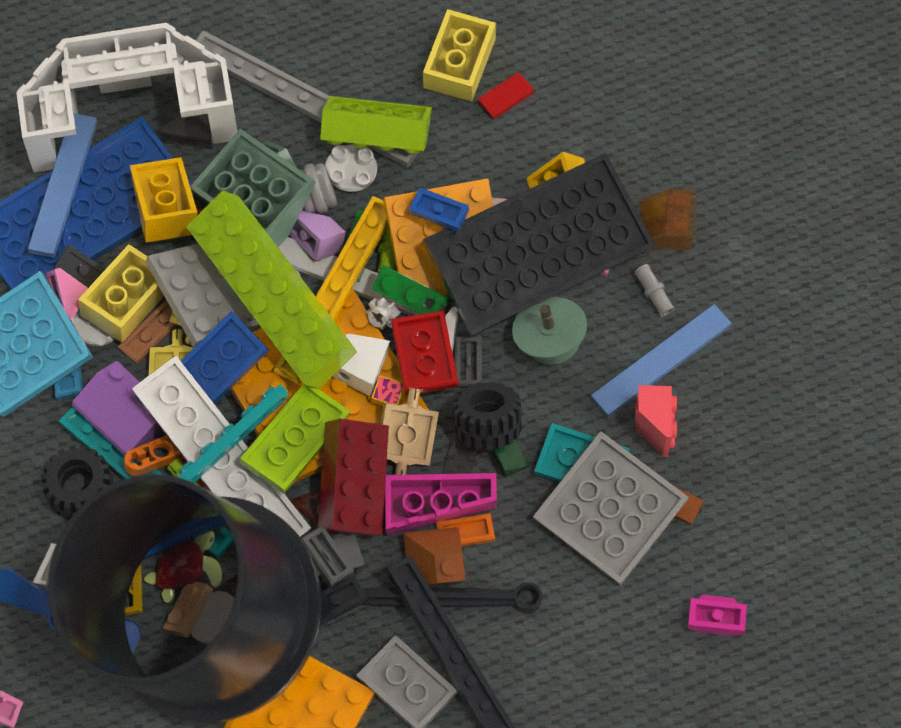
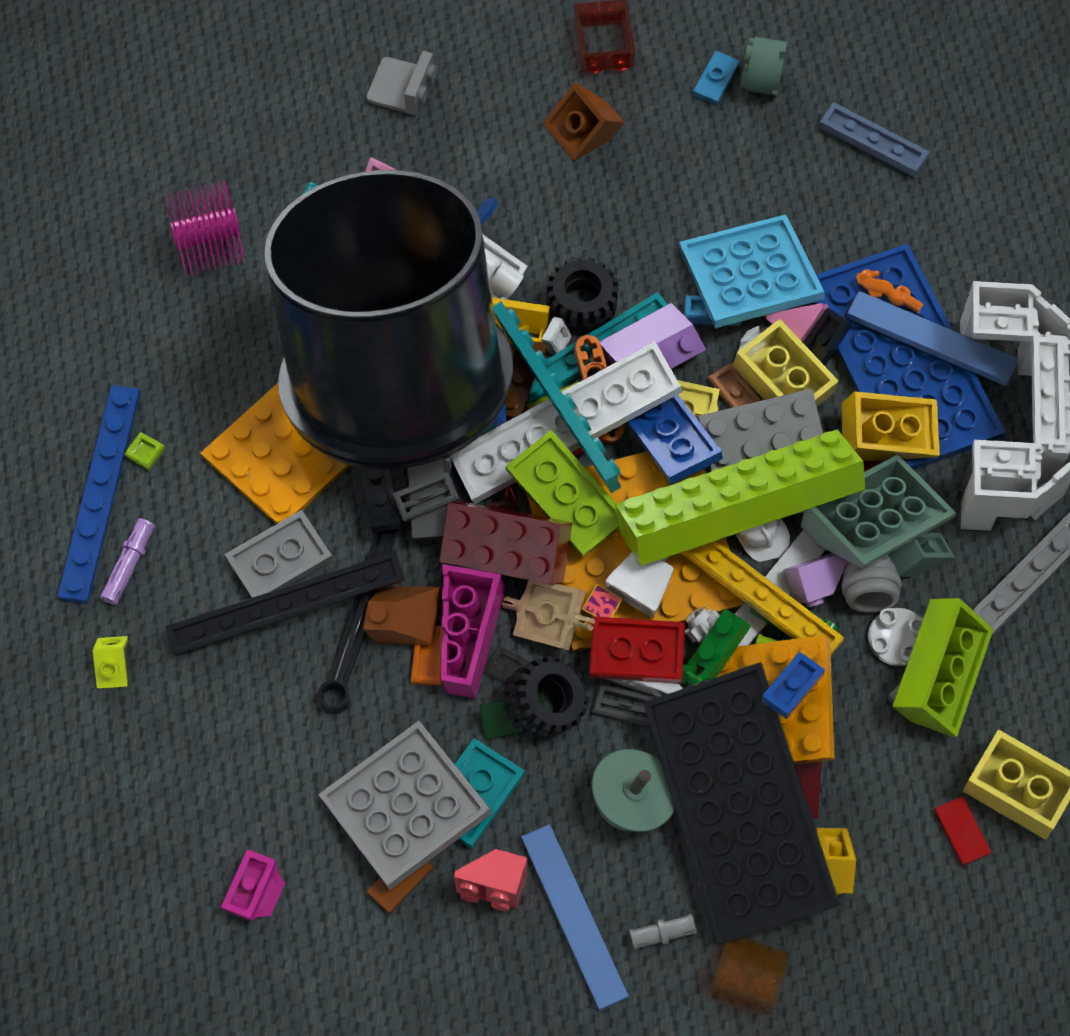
camera: 105 degrees right, 0 degrees up
(18, 234) = (879, 287): none -> orange animal

